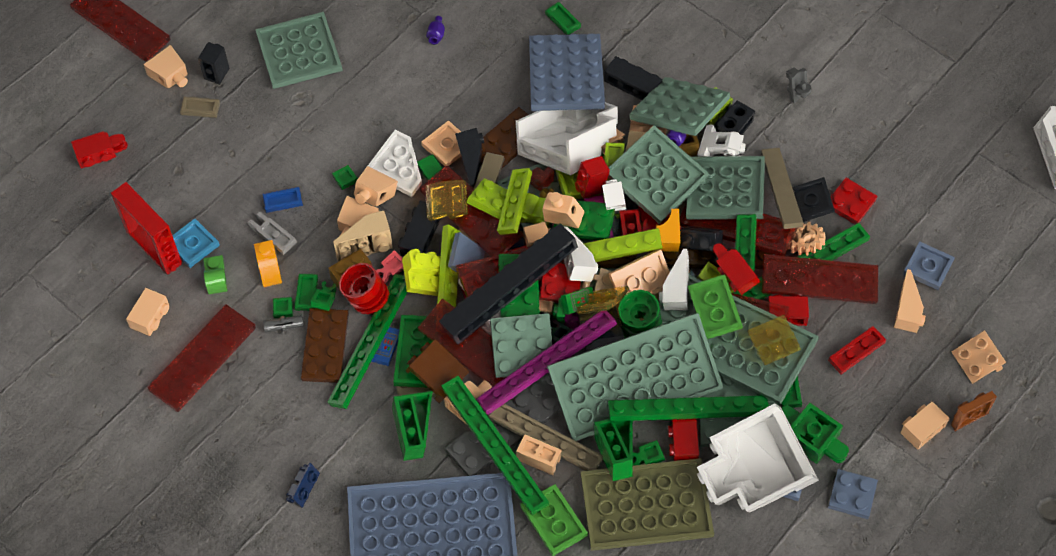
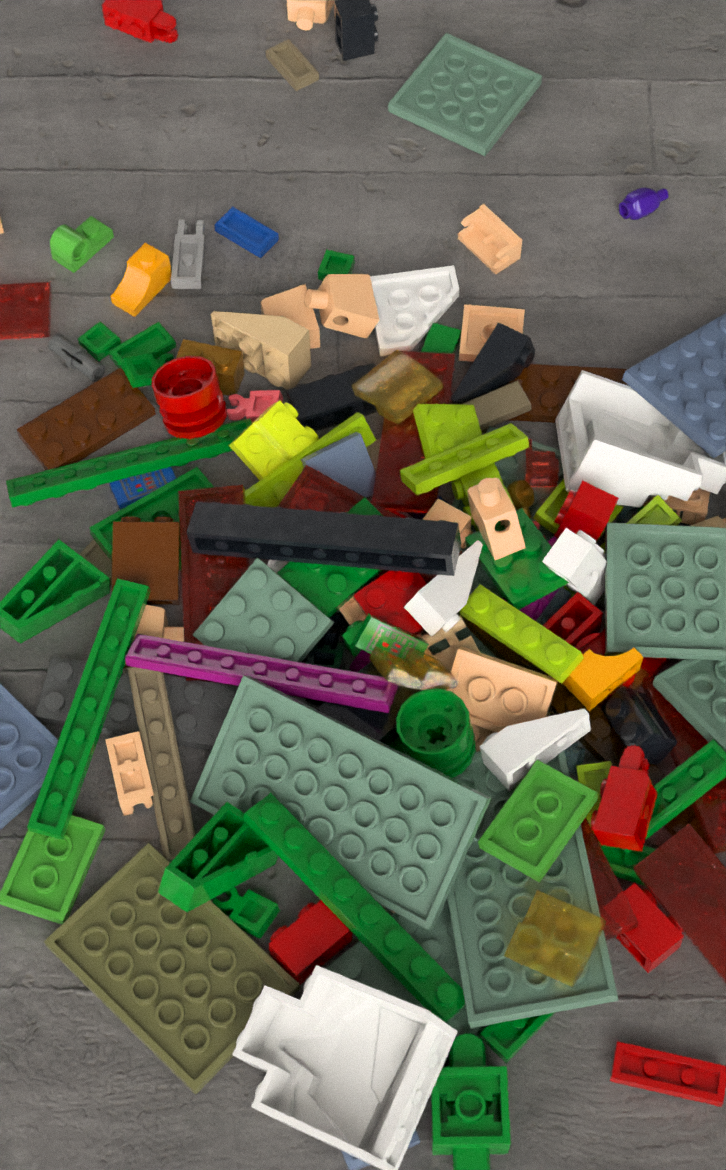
camera: 50 degrees right, 0 degrees up
(146, 228) = (57, 94): red window -> none
(194, 242) = (101, 190): dark azure plate -> none
(394, 104) = (490, 239): none -> light nougat hinge

